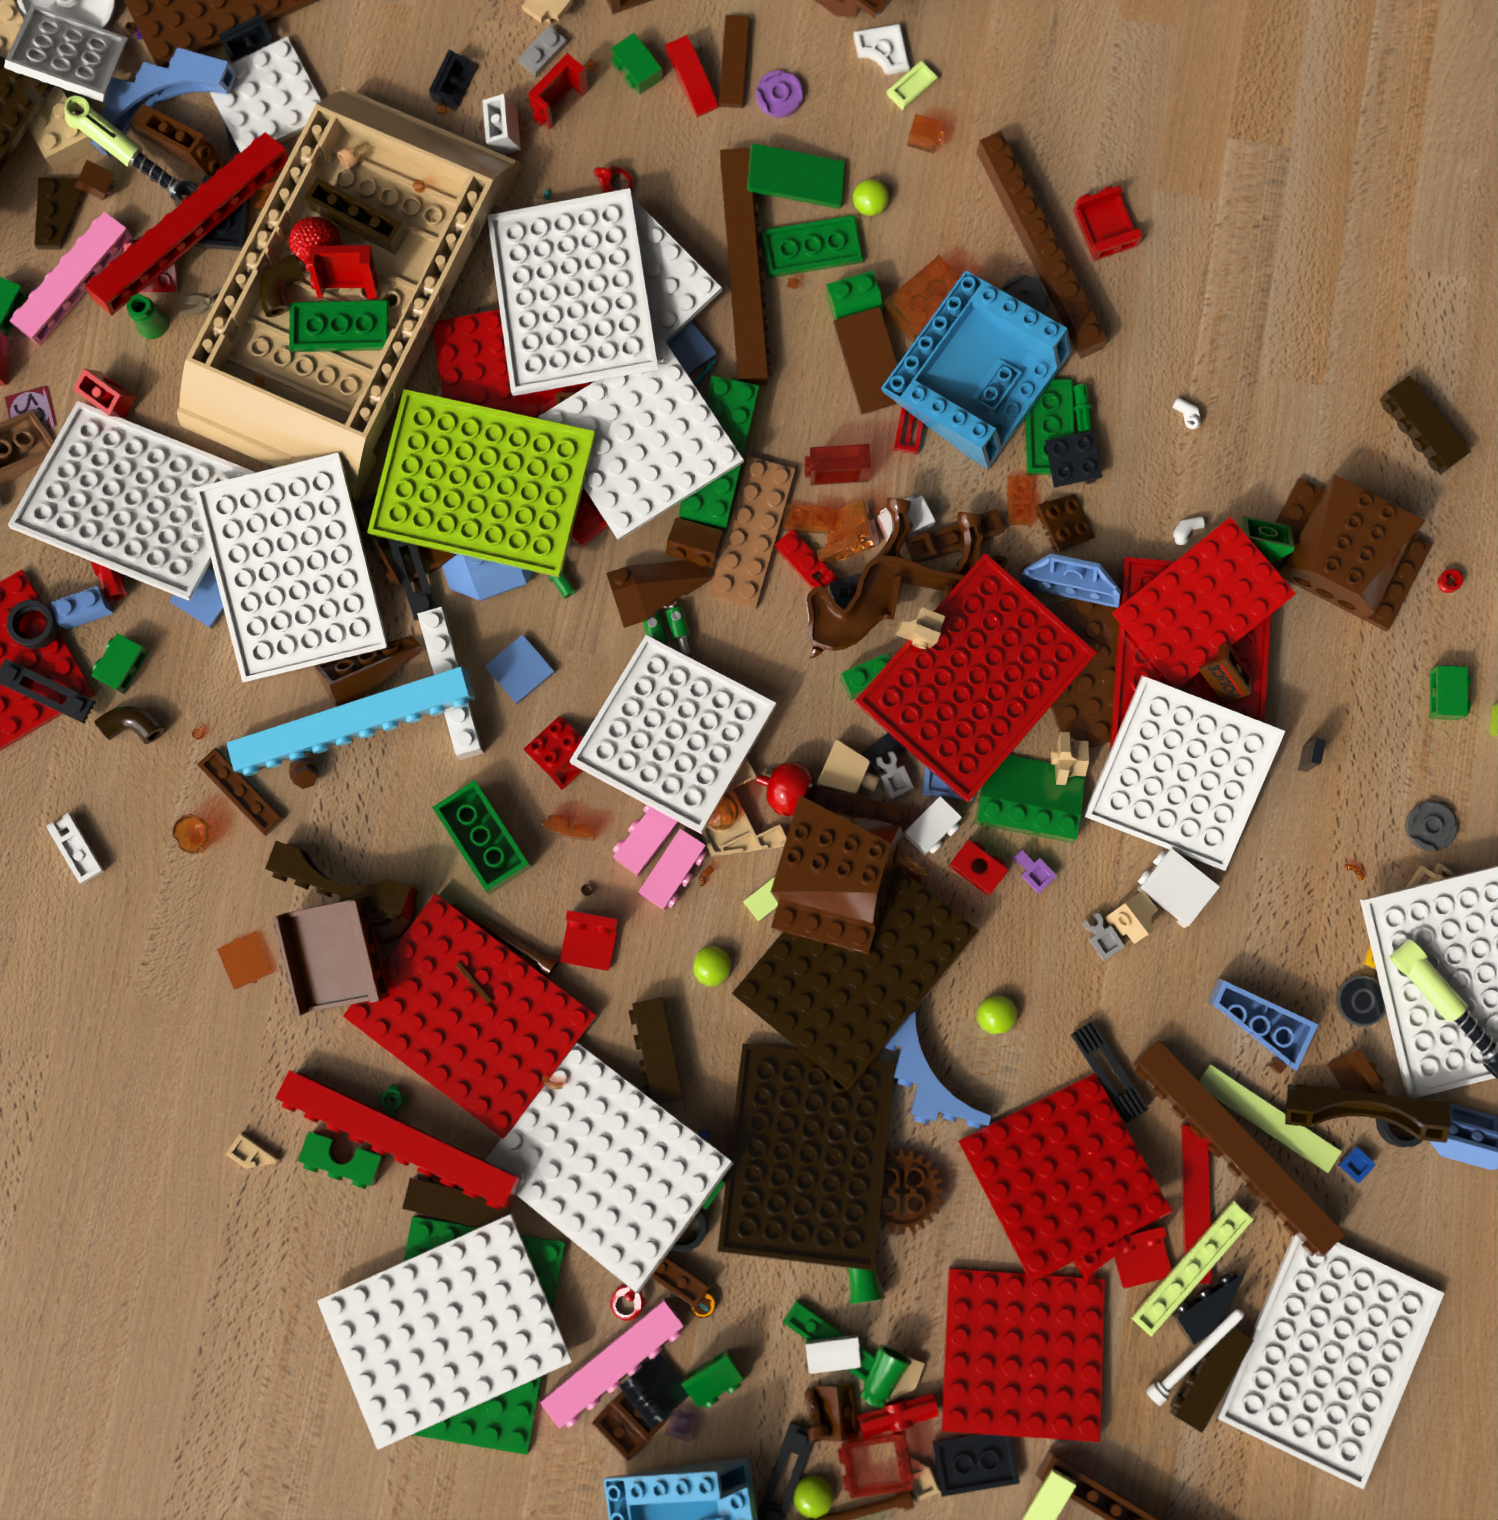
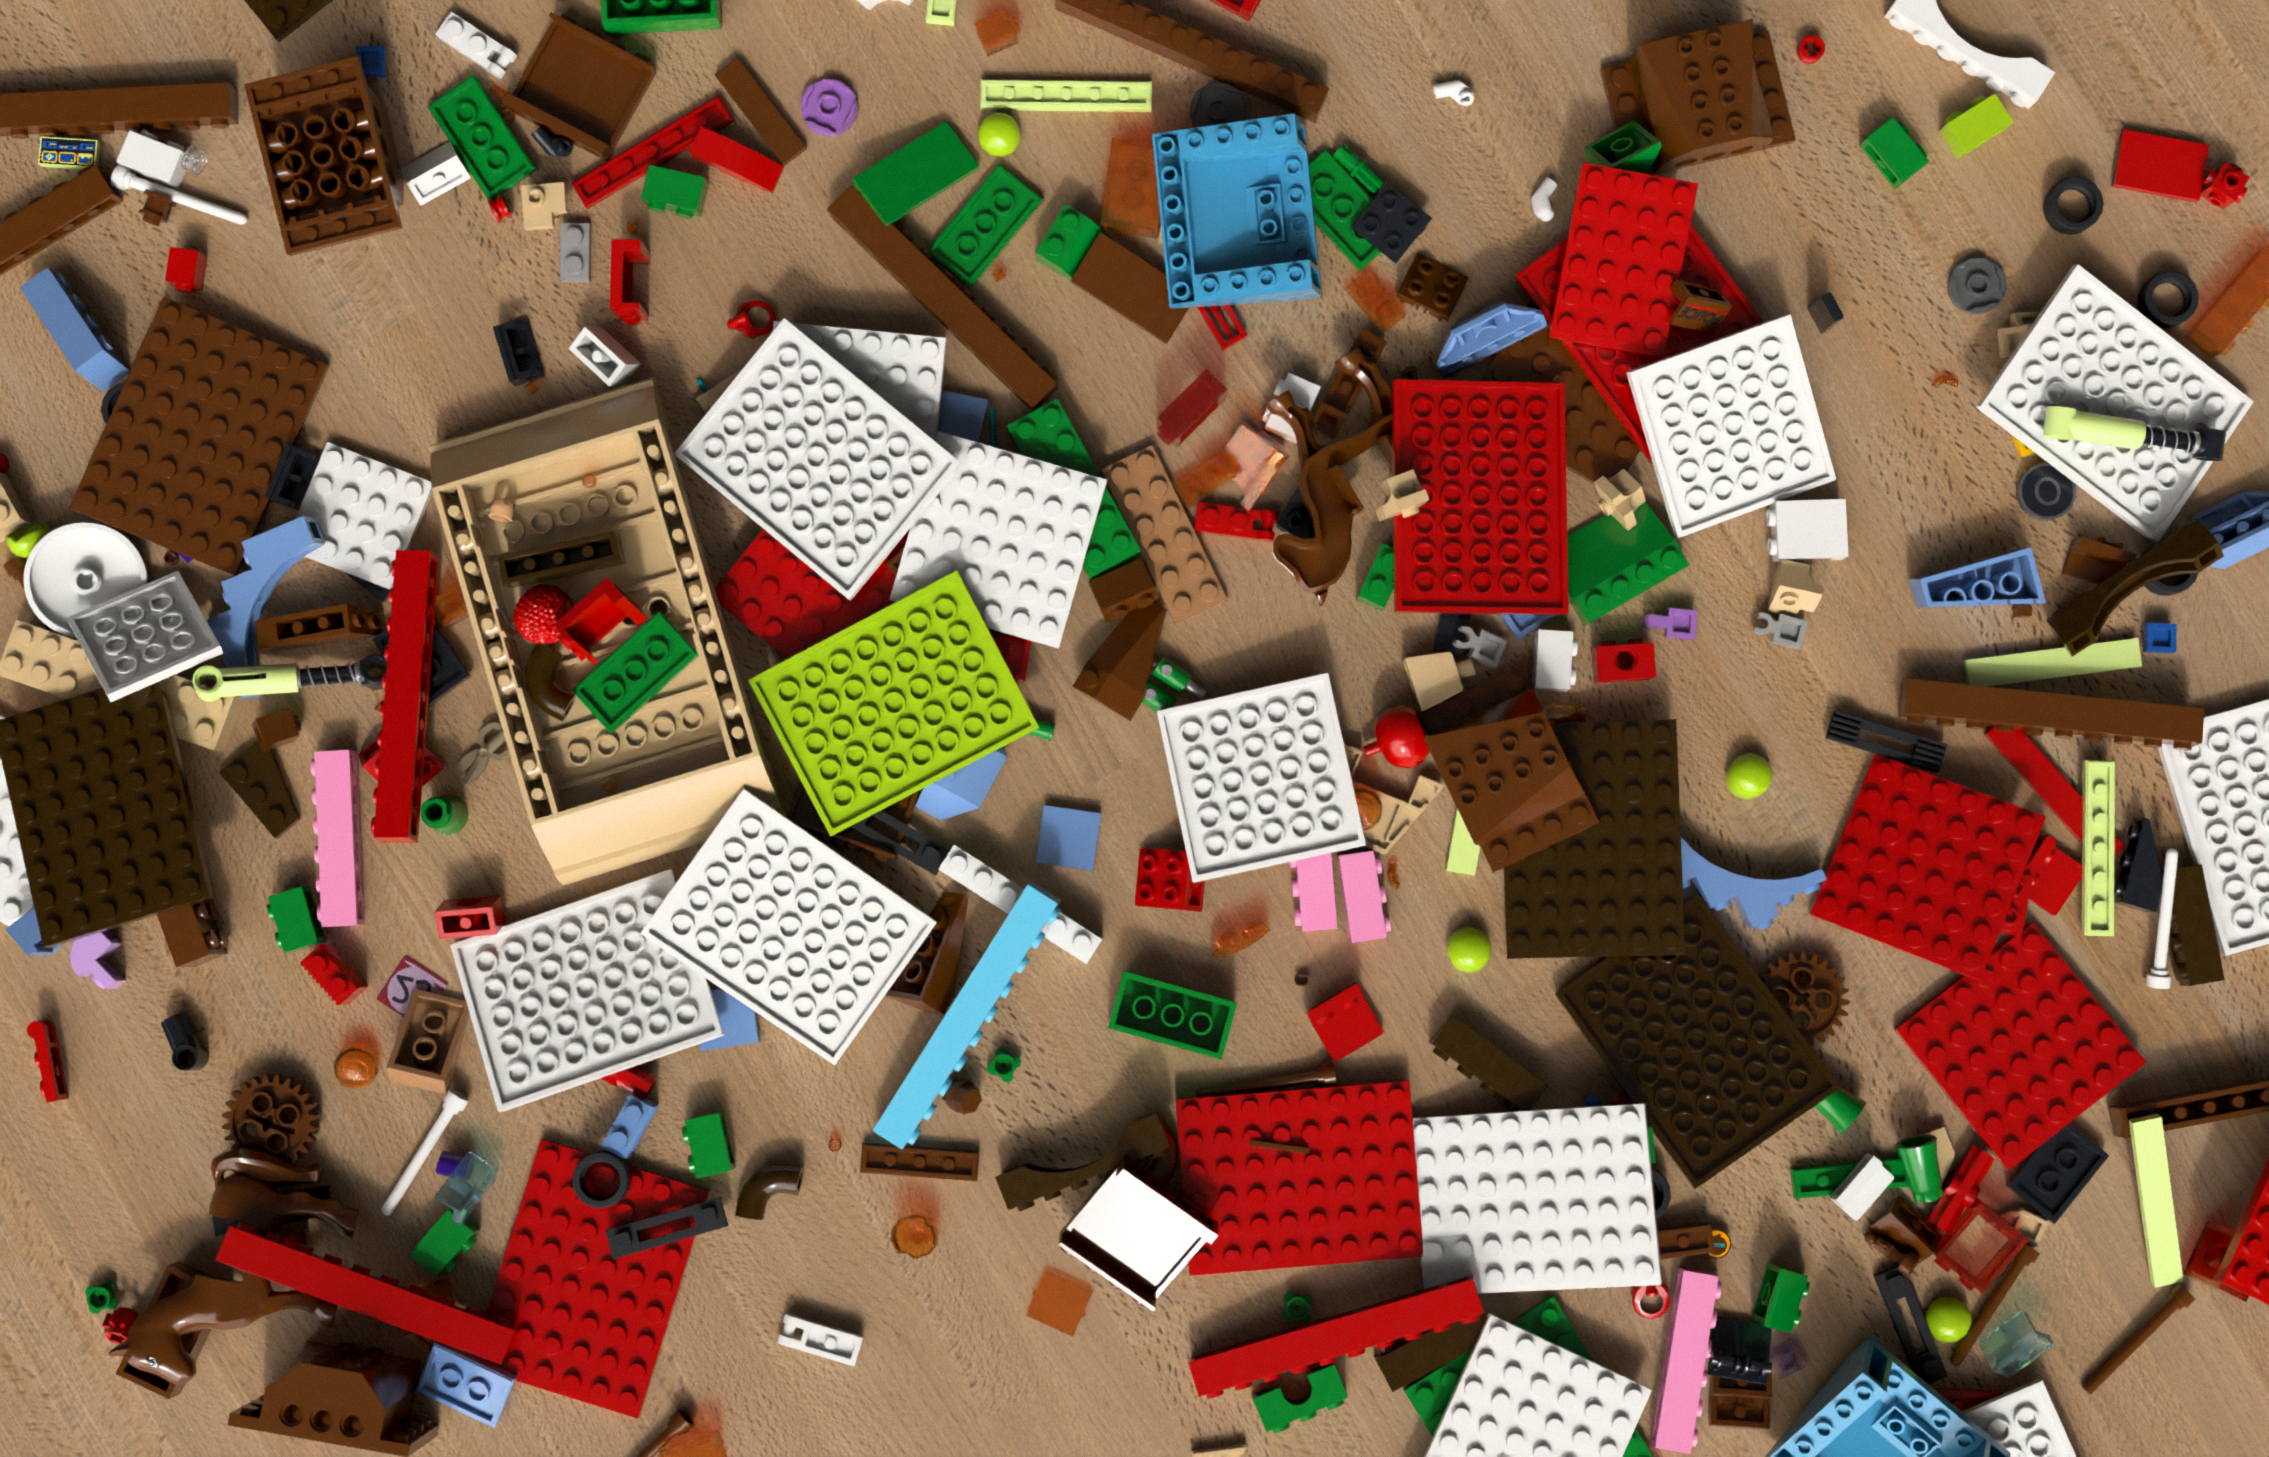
camera: 40 degrees left, 5 degrees up
(341, 774) = (996, 1068): none -> green plate
(559, 1084) = (1423, 1174): clear orange leg -> none
(648, 30) = (651, 151): none -> red tile
(935, 209) = (1066, 95): none -> yellowish green tile

